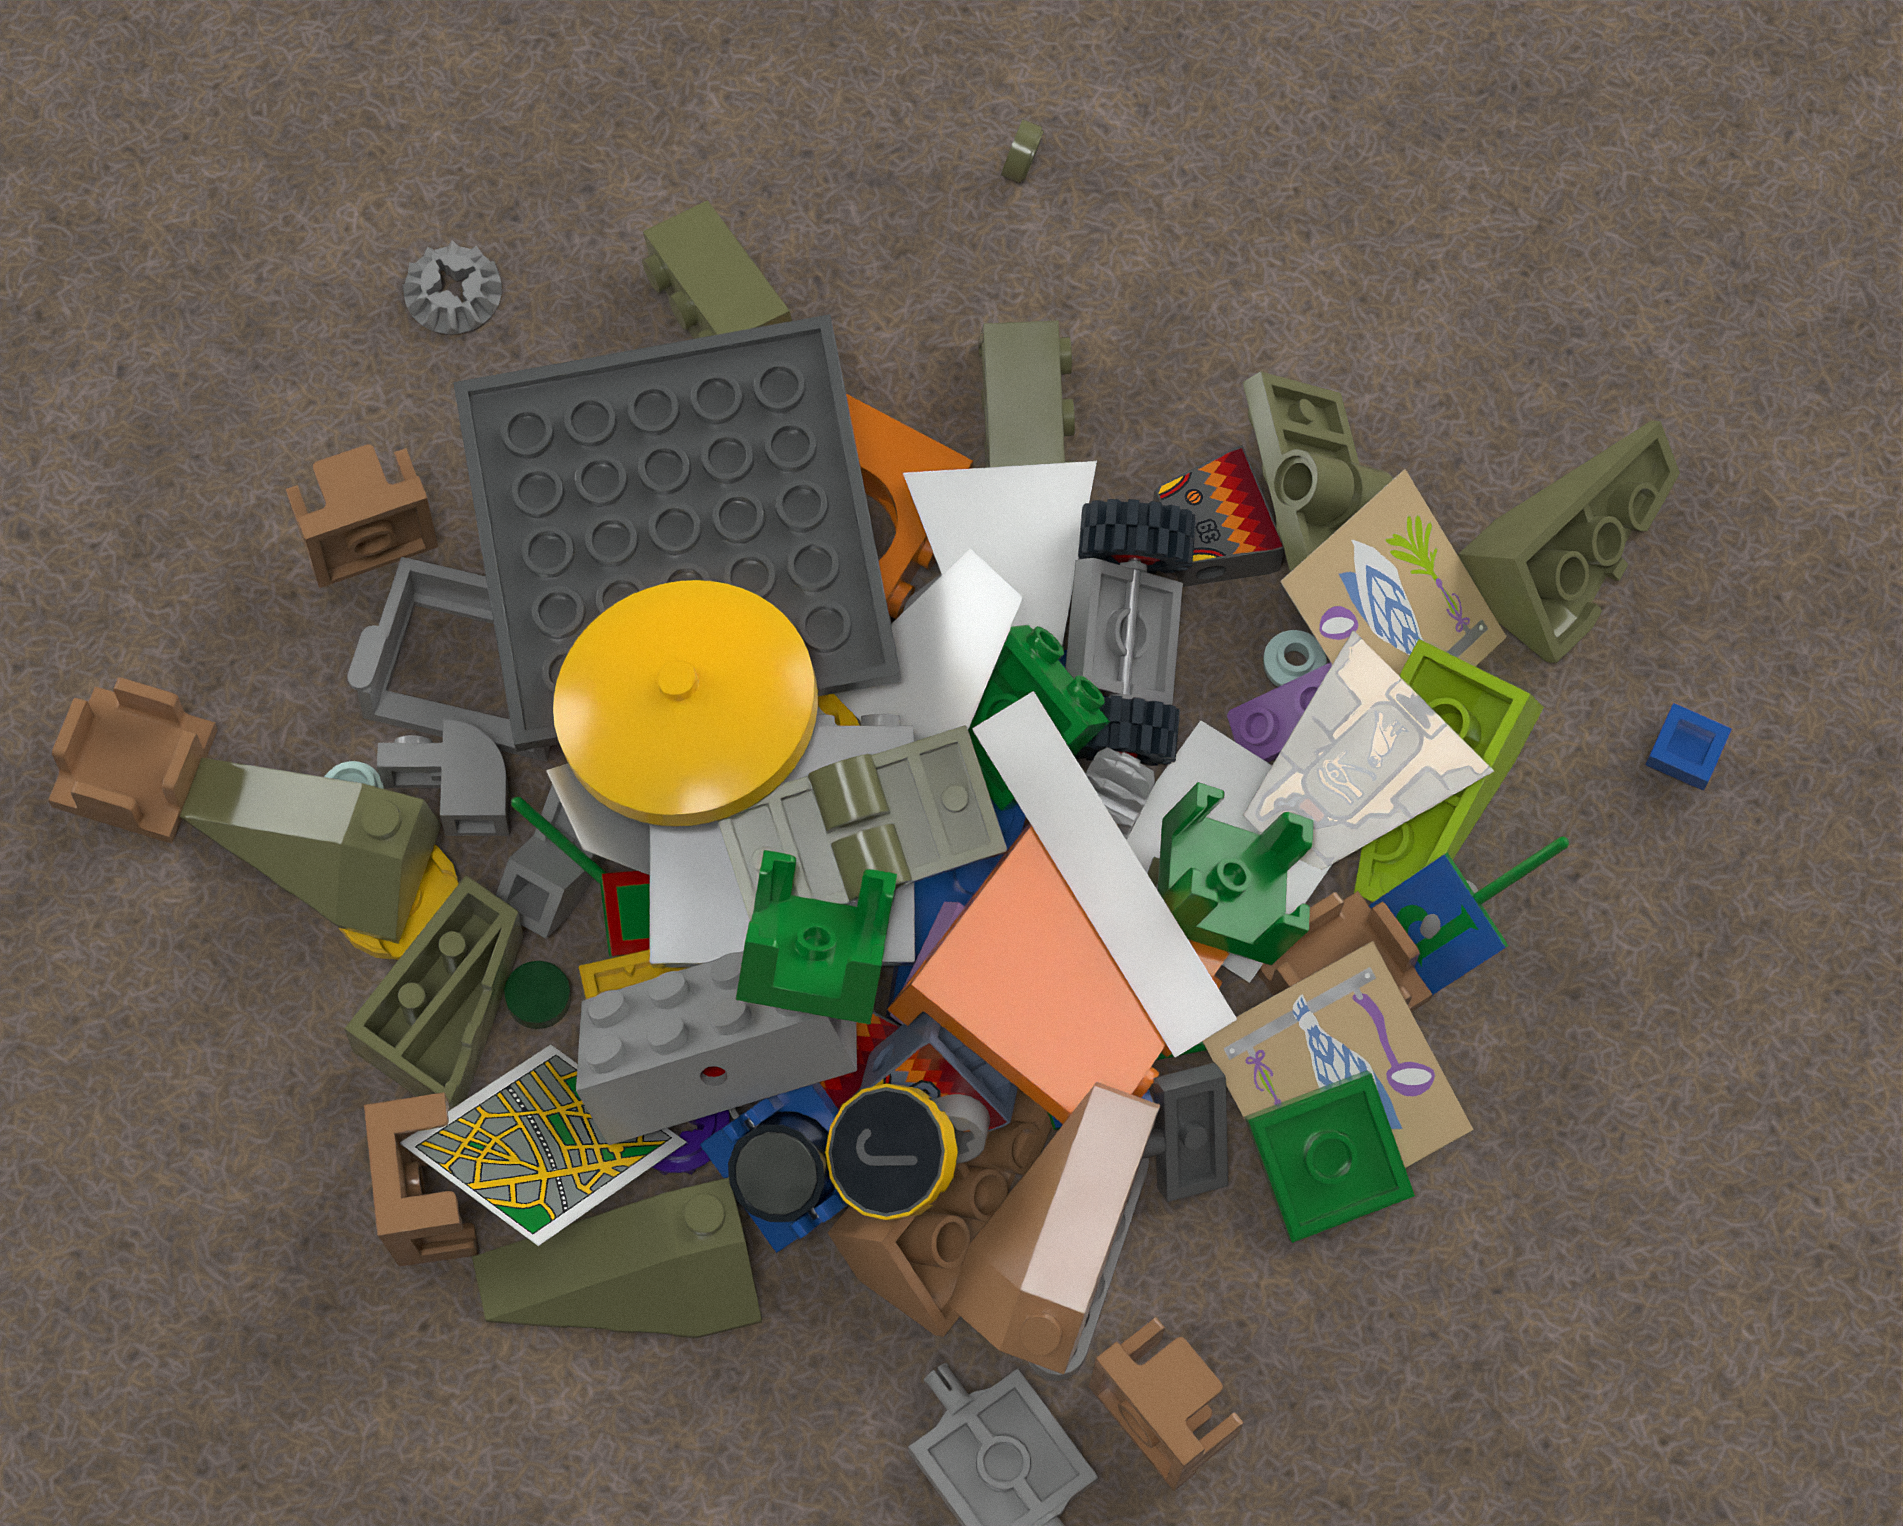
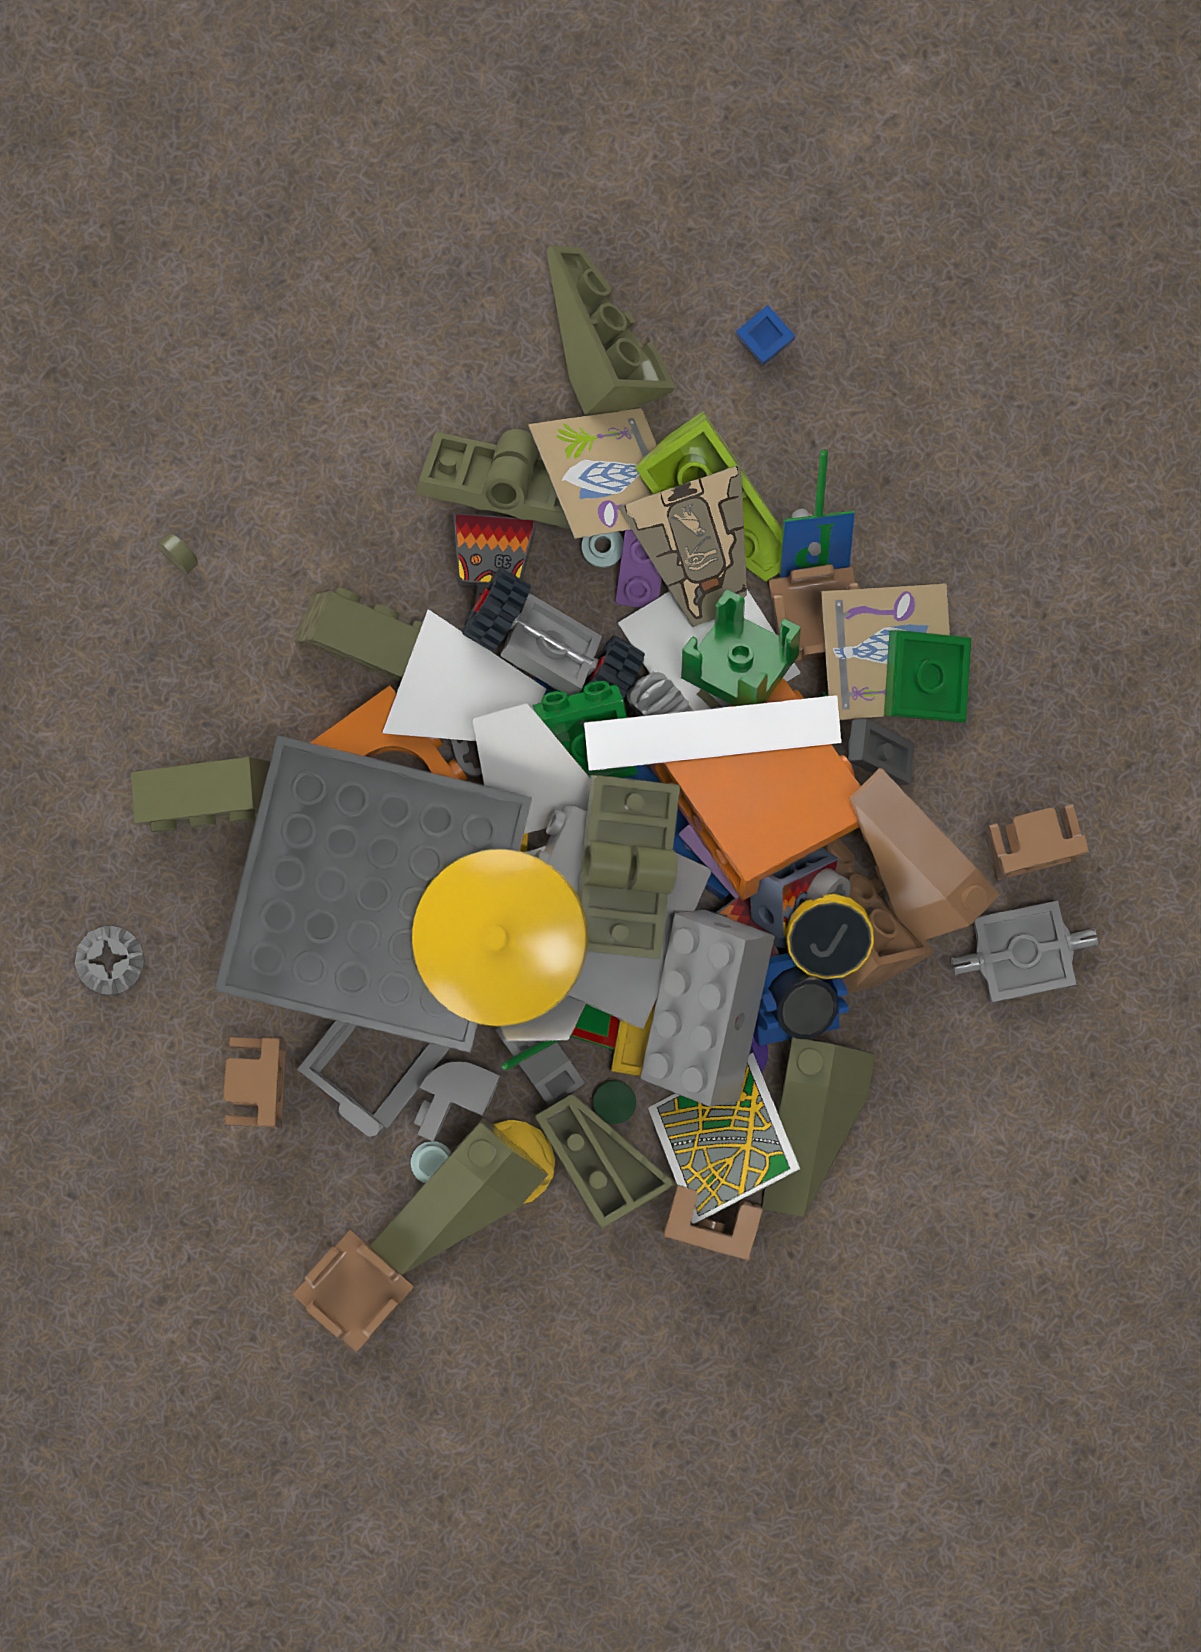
camera: 60 degrees left, 15 degrees up
(815, 951) = (699, 928): green panel -> none

